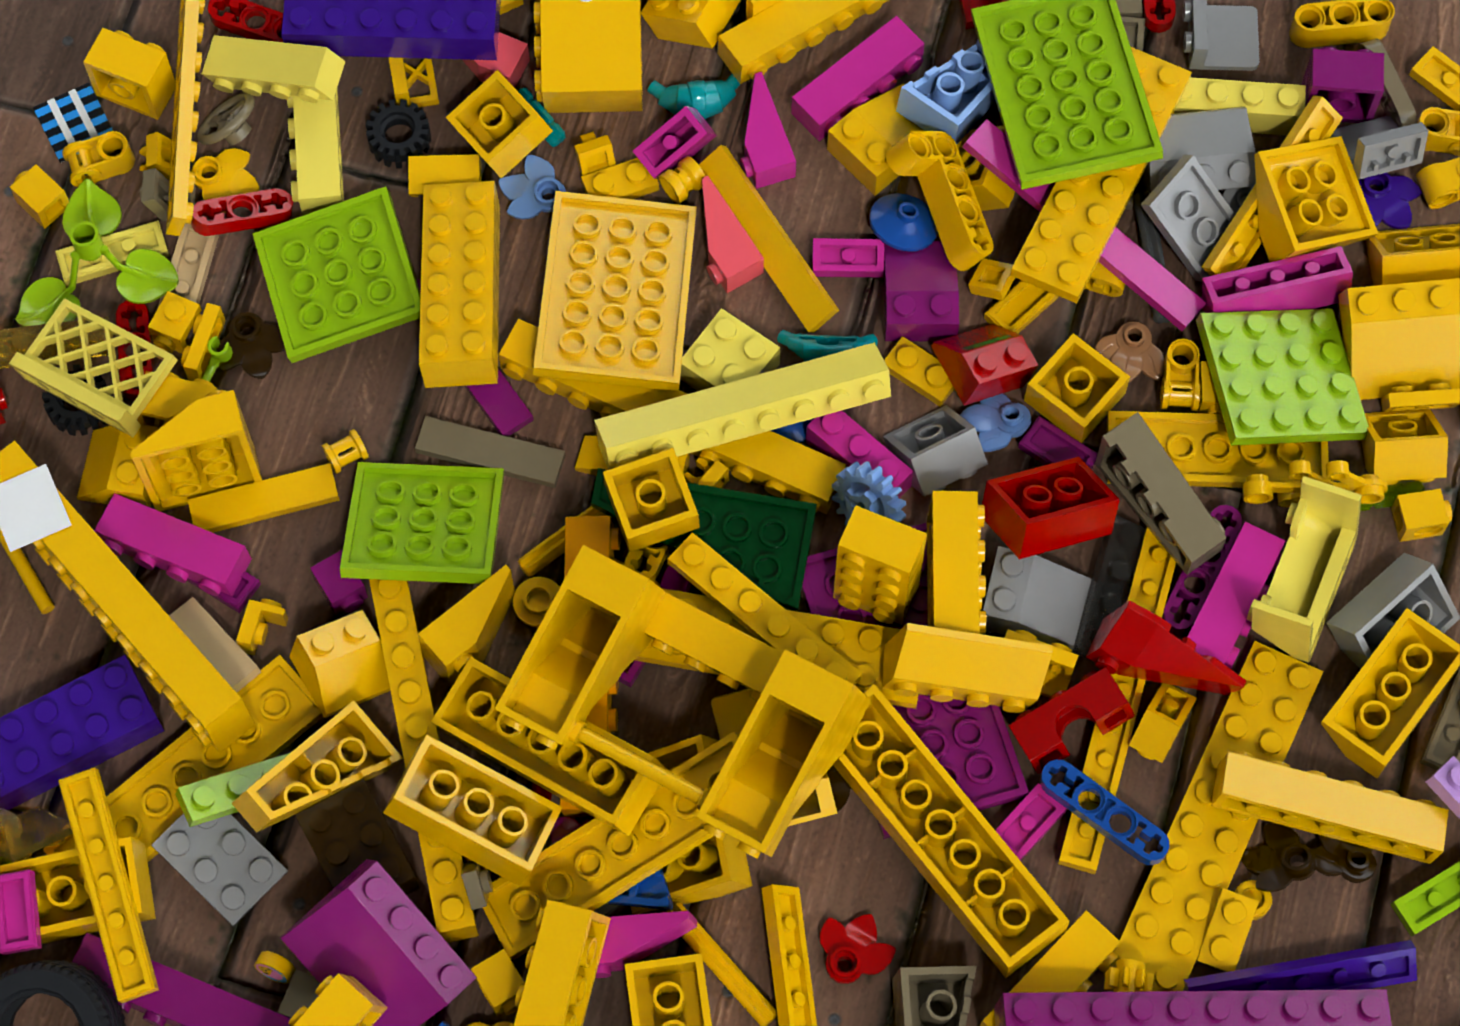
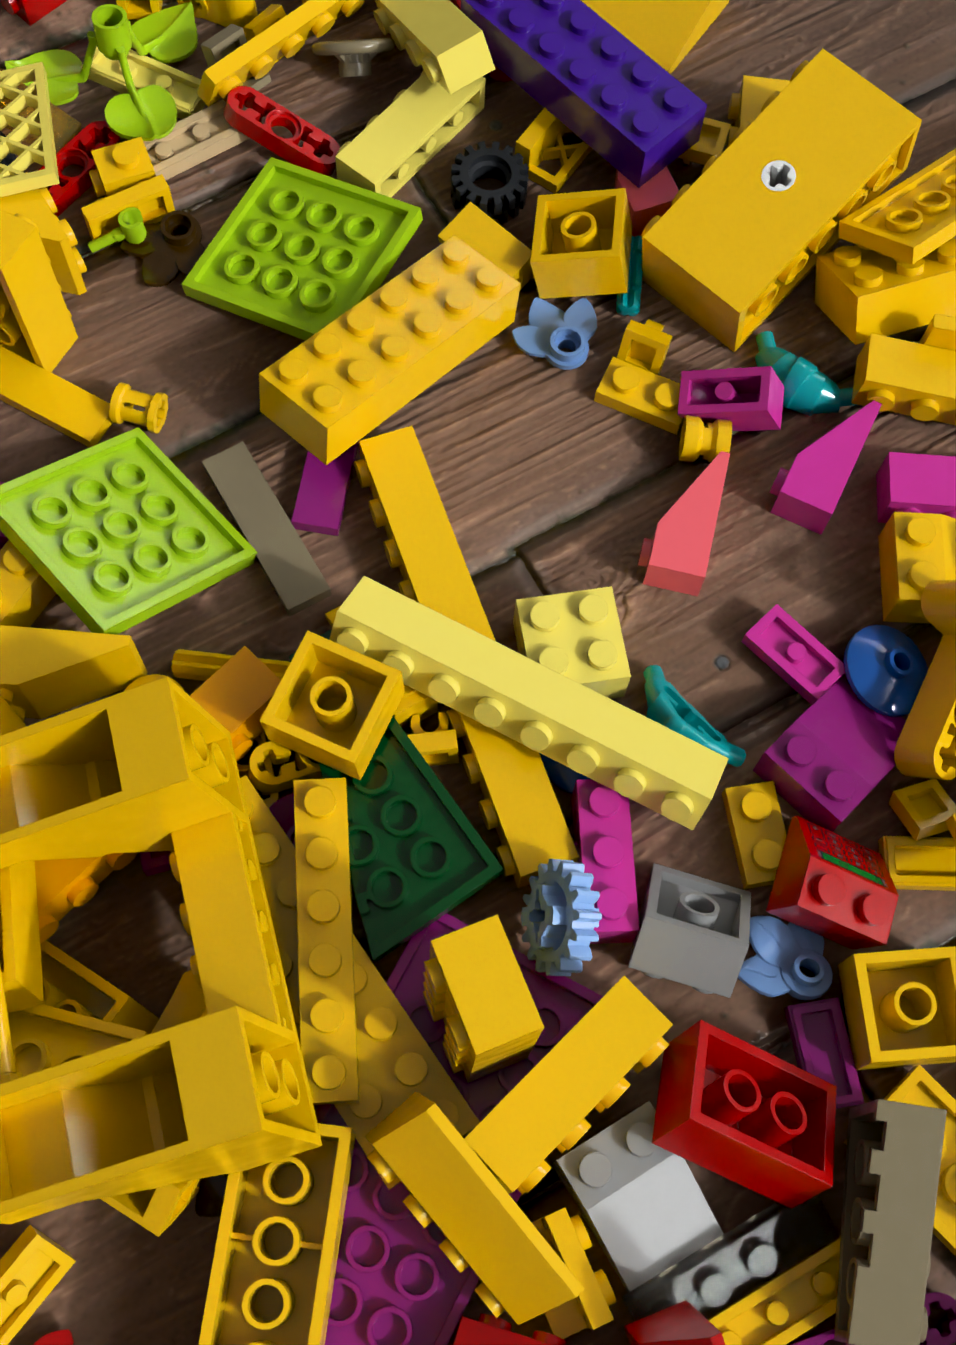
camera: 40 degrees right, 0 degrees up
(229, 177) = (306, 93): yellow plate -> none
(615, 291) = (526, 483): yellow plate -> none
(780, 255) = (731, 570): yellow tile -> none

